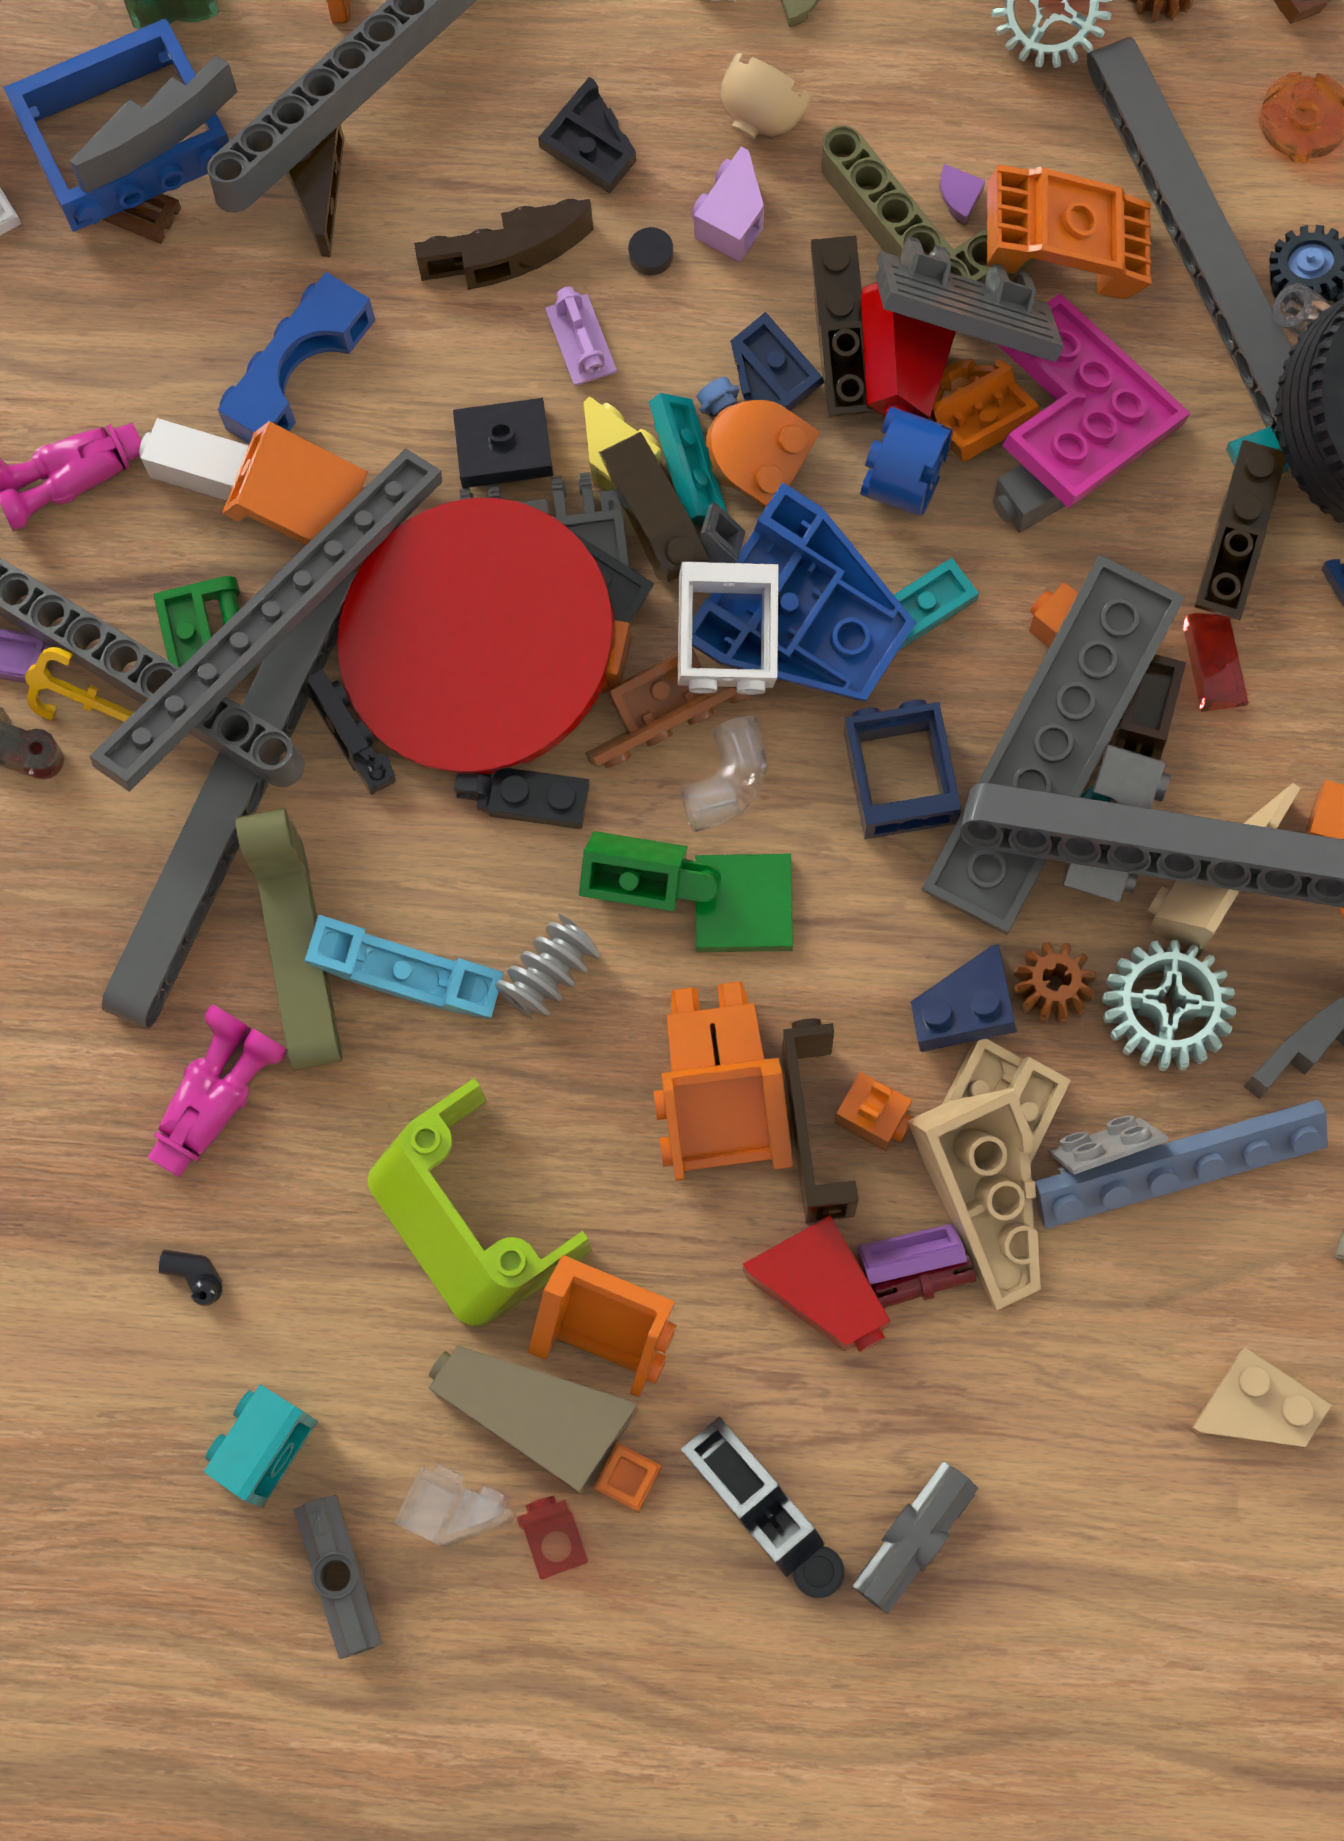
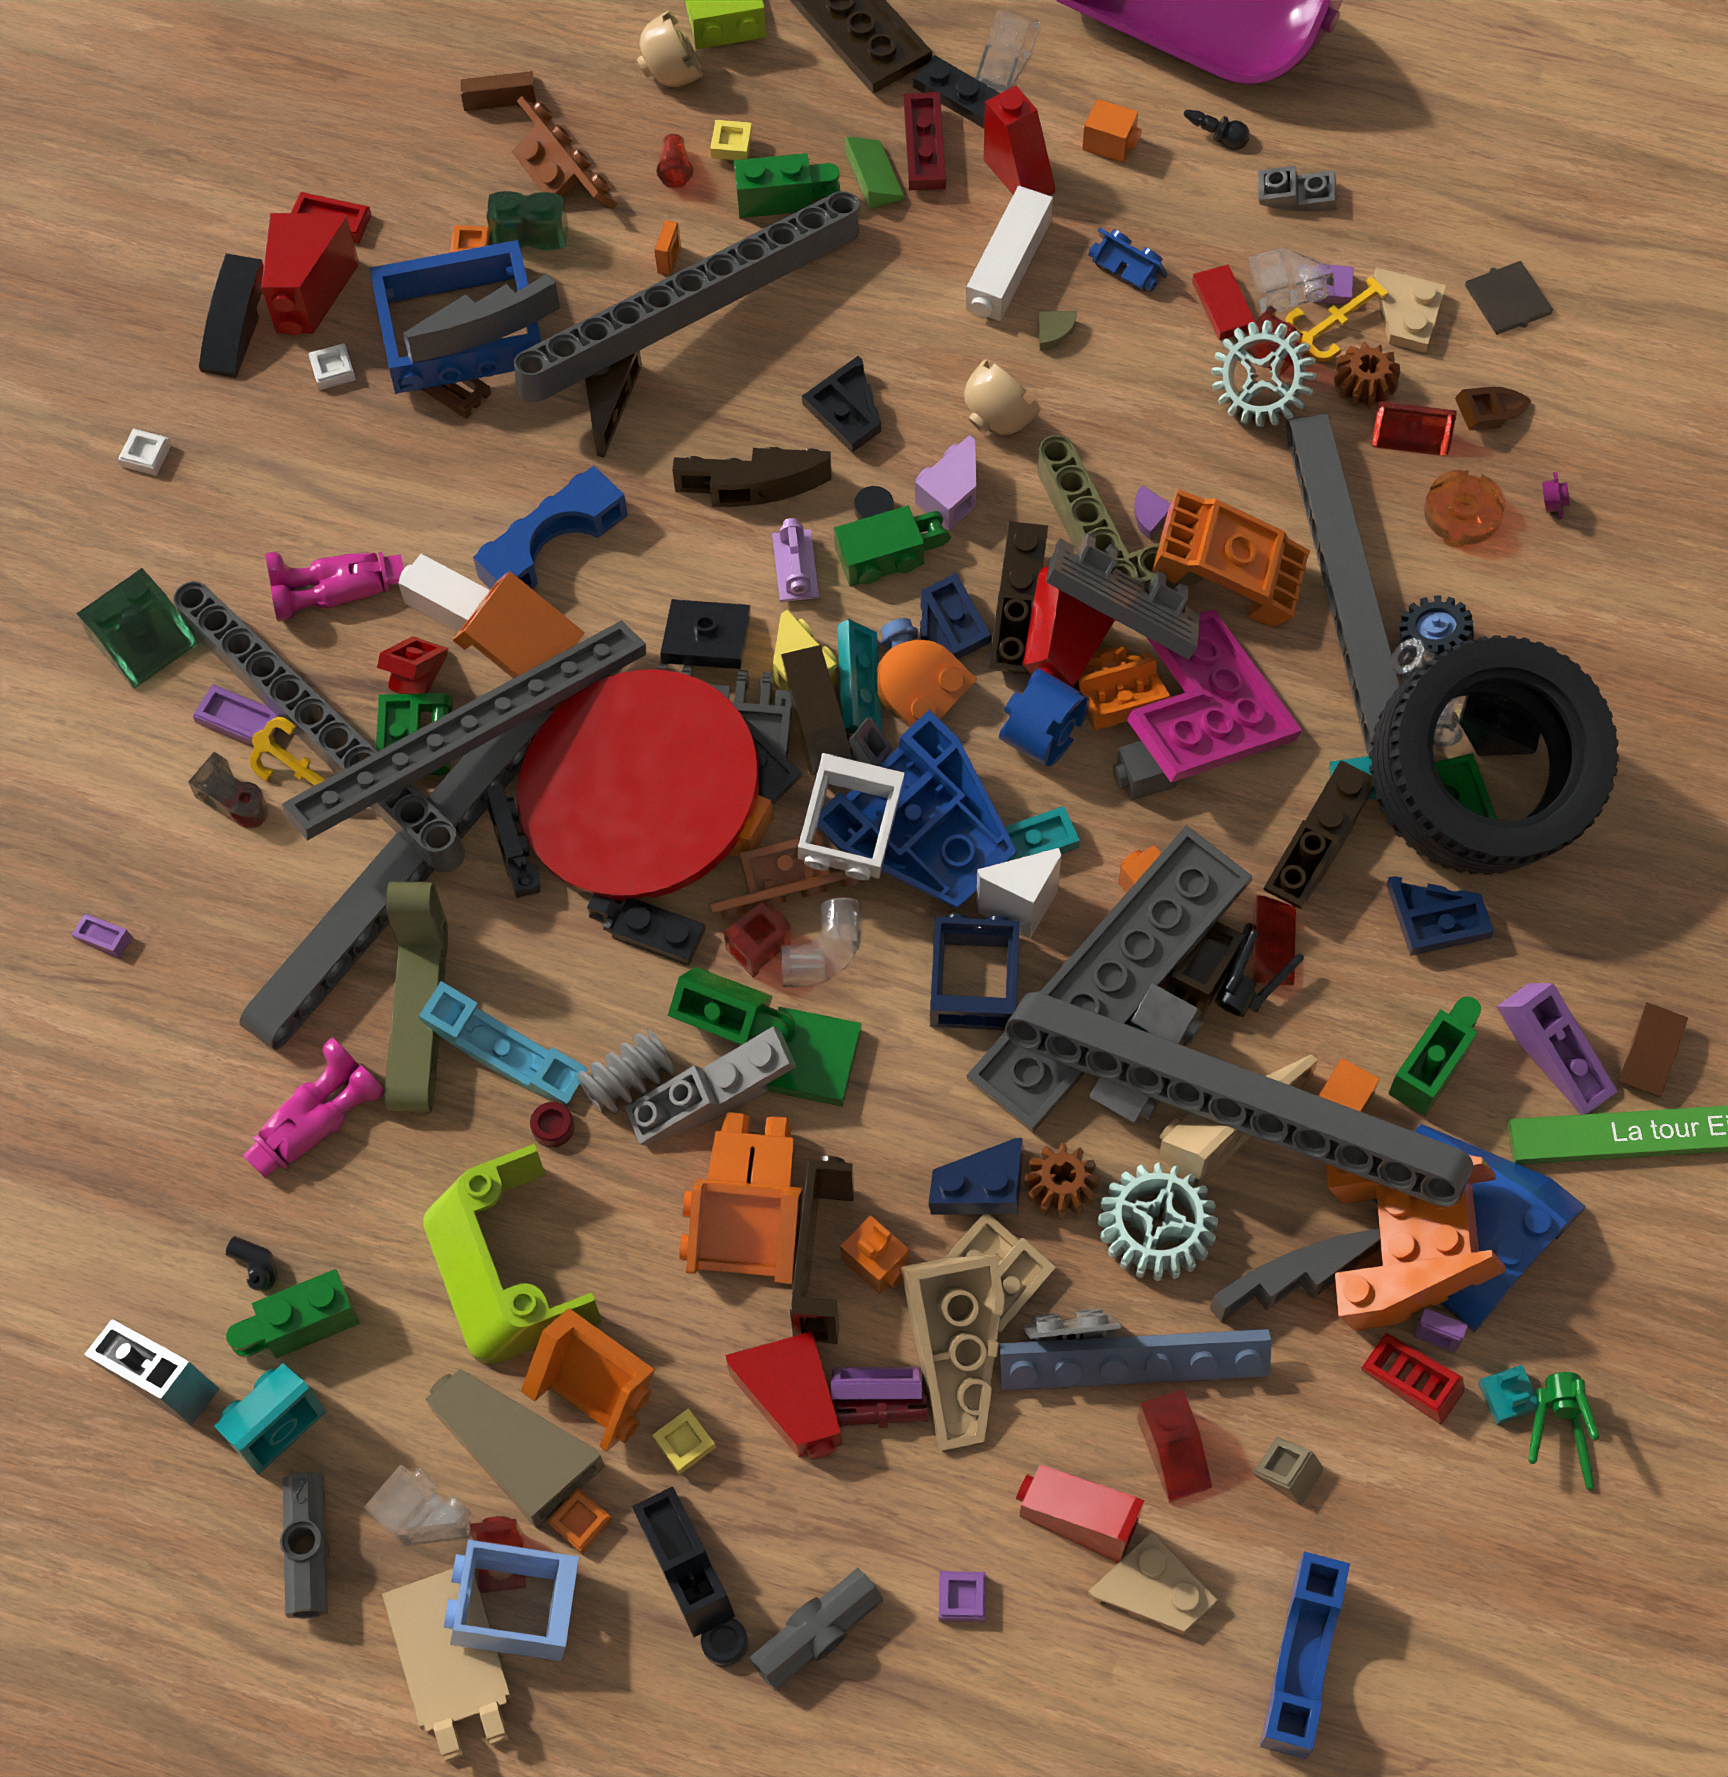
camera: 10 degrees right, 10 degrees down
(107, 26) = (469, 237): none -> orange tile
(115, 1422) = (153, 1371): none -> flat silver slope
(181, 550) = (412, 665): none -> red slope
(257, 1327) = (295, 1317): none -> green brick
(479, 1043) = (552, 1124): none -> dark red tile
(527, 1658) = (444, 1678): none -> tan tile
(634, 1575) = (520, 1561): none -> light blue window
(648, 966) = (711, 1091): none -> light grey slope
(653, 765) = (755, 925): none -> clear red brick
(678, 293) = (887, 543): none -> green brick
(719, 1365) = (683, 1441): none -> light yellow plate
(928, 666) = (1020, 889): none -> white slope
(1059, 1463) = (962, 1596): none -> medium lavender tile
(1168, 1345) = (1080, 1511): none -> slope
(1192, 727) = (1238, 991): none -> black plant
(1228, 34) = (1413, 428): none -> clear red slope
(1247, 1248) = (1175, 1445): none -> clear red slope

